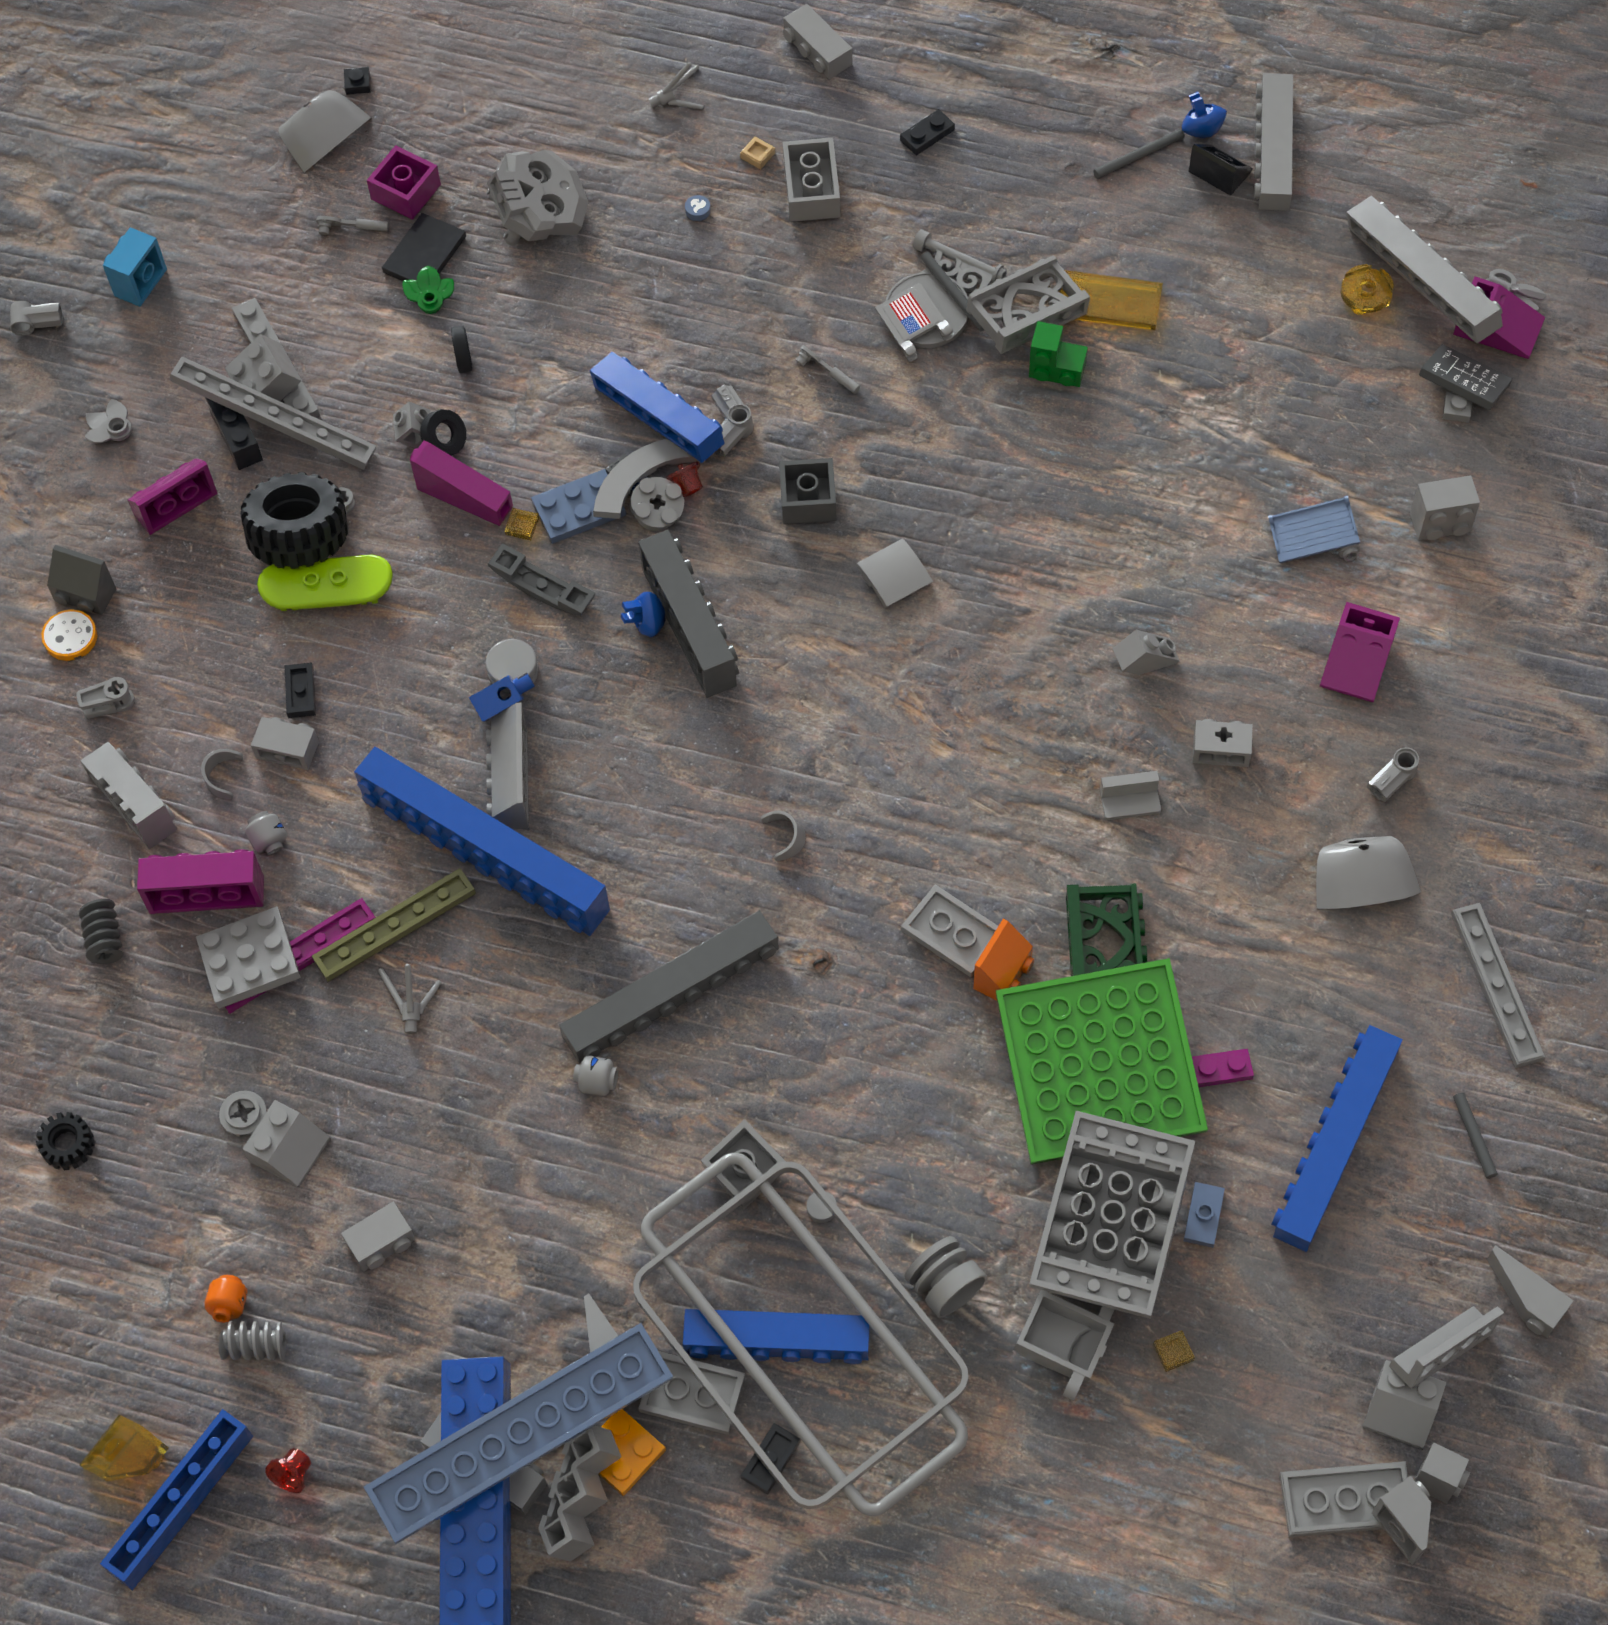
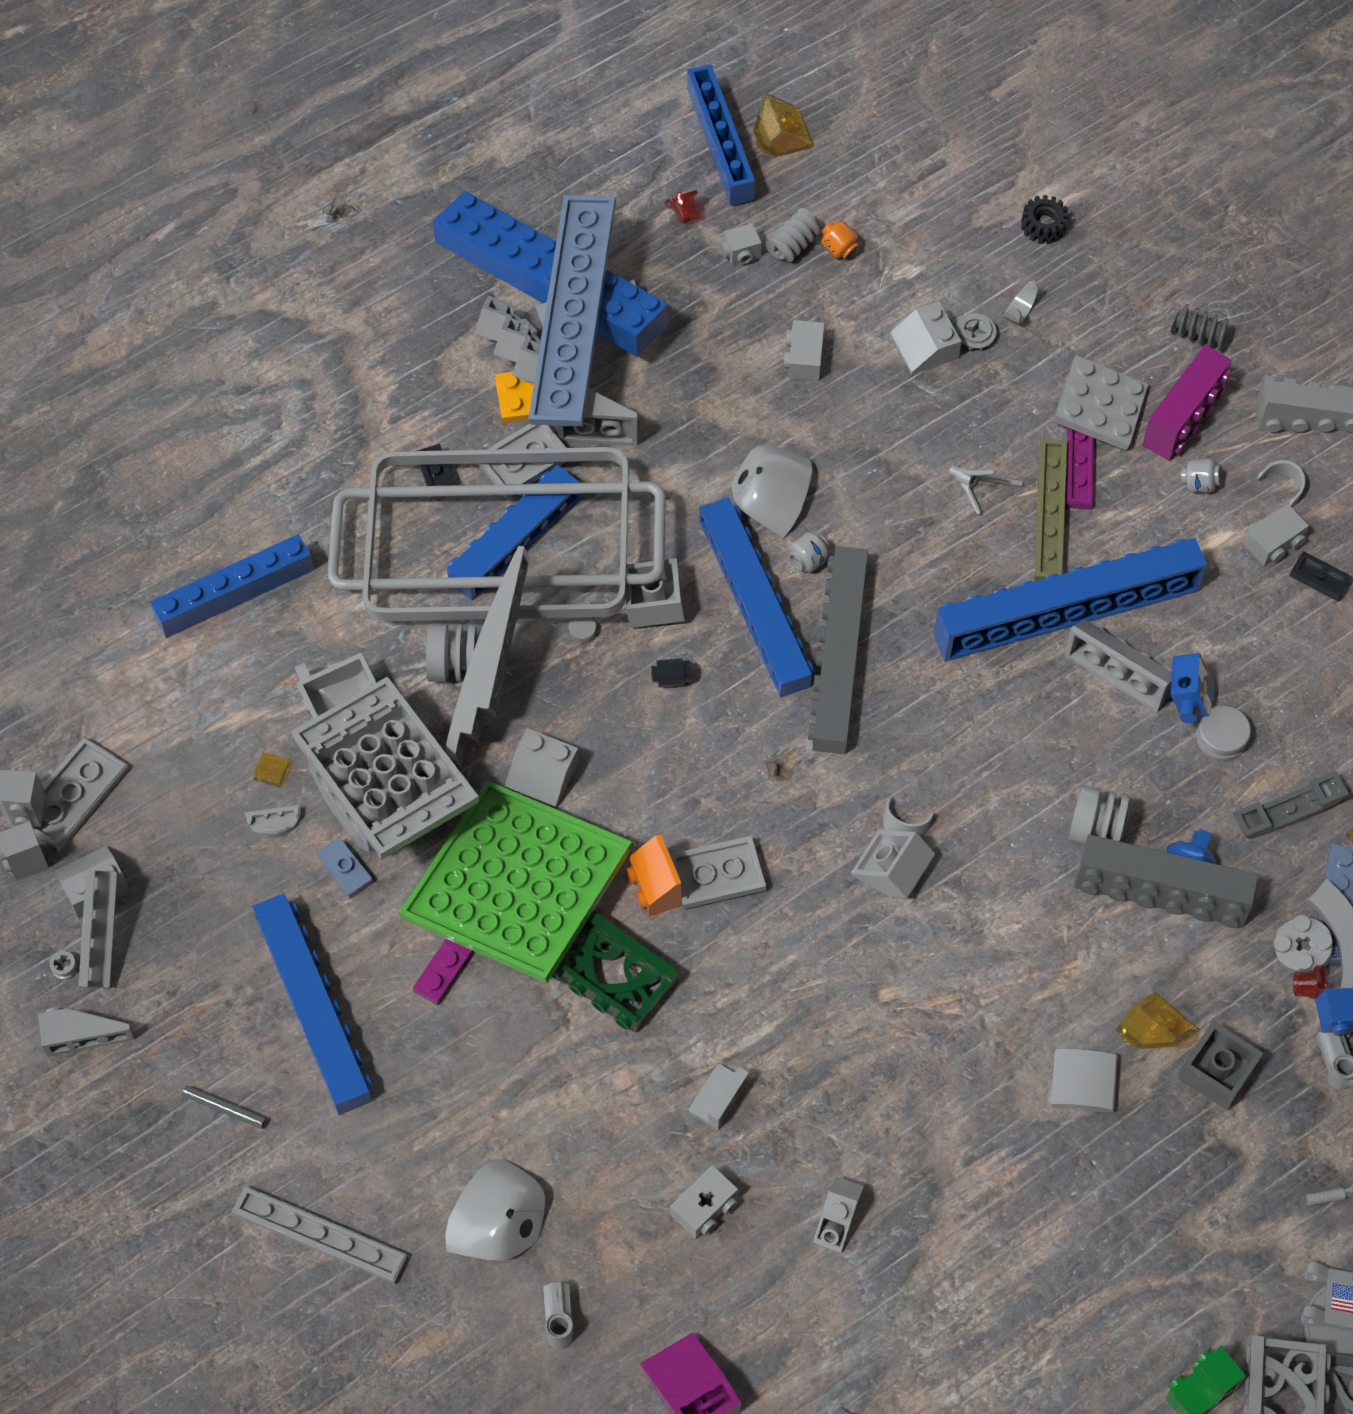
camera: 125 degrees right, 0 degrees up
(186, 1099) = (1022, 303): none -> light grey helmet
(298, 1382) = (741, 245): none -> light grey brick
(525, 1155) = (776, 493): none -> light grey piece
(671, 690) = (1099, 817): none -> light grey wheel
(673, 1090) = (755, 597): none -> blue brick
(804, 1098) = (671, 672): none -> black brick
(810, 552) = (1155, 1024): none -> clear yellow slope
(832, 813) = (893, 862): none -> light grey slope
(951, 1212) = (488, 662): none -> light grey slope
(981, 1129) = (542, 768): none -> light grey slope
(1040, 1532) = (232, 586): none -> blue brick
(1216, 1307) = (274, 821): none -> light grey tile
(1490, 1353) = (68, 971): none -> light grey bush

